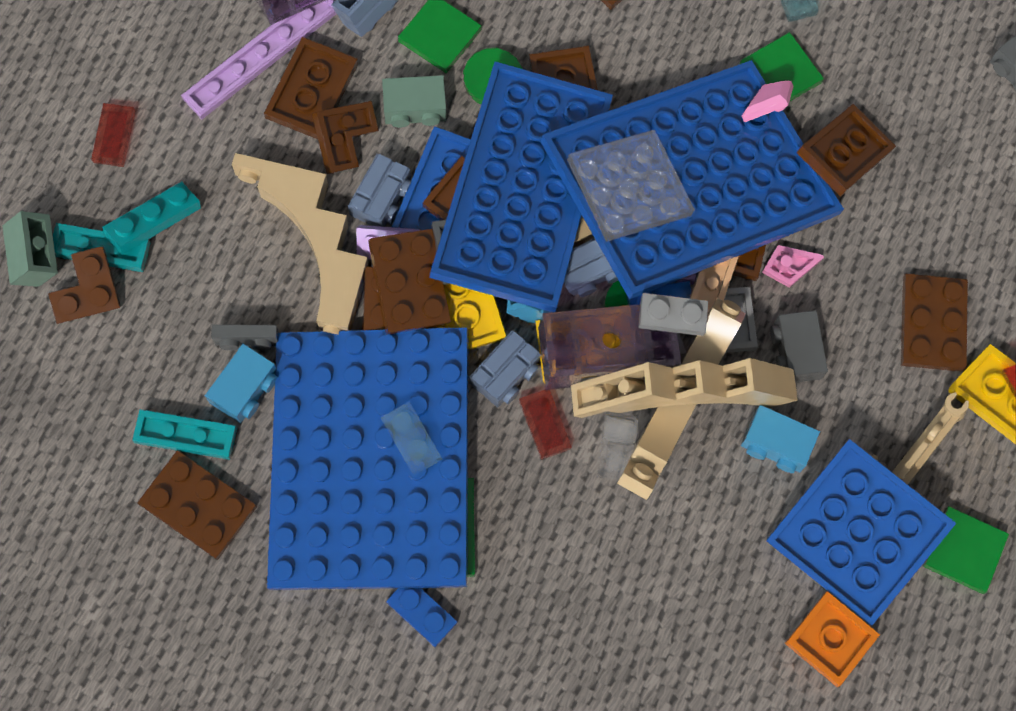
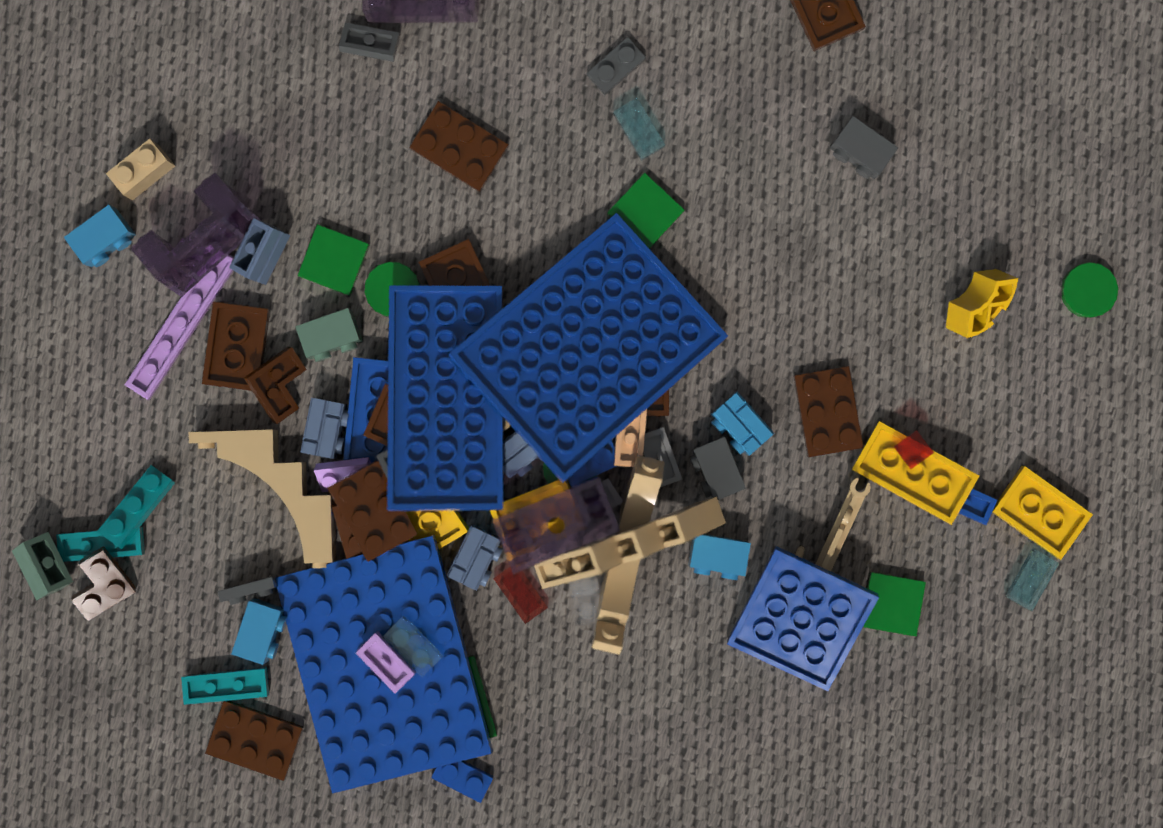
camera: 15 degrees left, 15 degrees up
(113, 135) = (78, 437): clear red tile -> none
(376, 447) = (386, 662): none -> lavender plate
(630, 185) = (537, 381): clear plate -> none
(673, 314) = (602, 490): light grey plate -> none
(769, 99) = (641, 252): bright pink piece -> none
(790, 264) = (694, 393): bright pink piece -> none
(832, 639) = (798, 709): orange plate -> none
(836, 306) = (741, 424): none -> dark azure brick
(846, 149) = (719, 278): reddish brown plate -> none

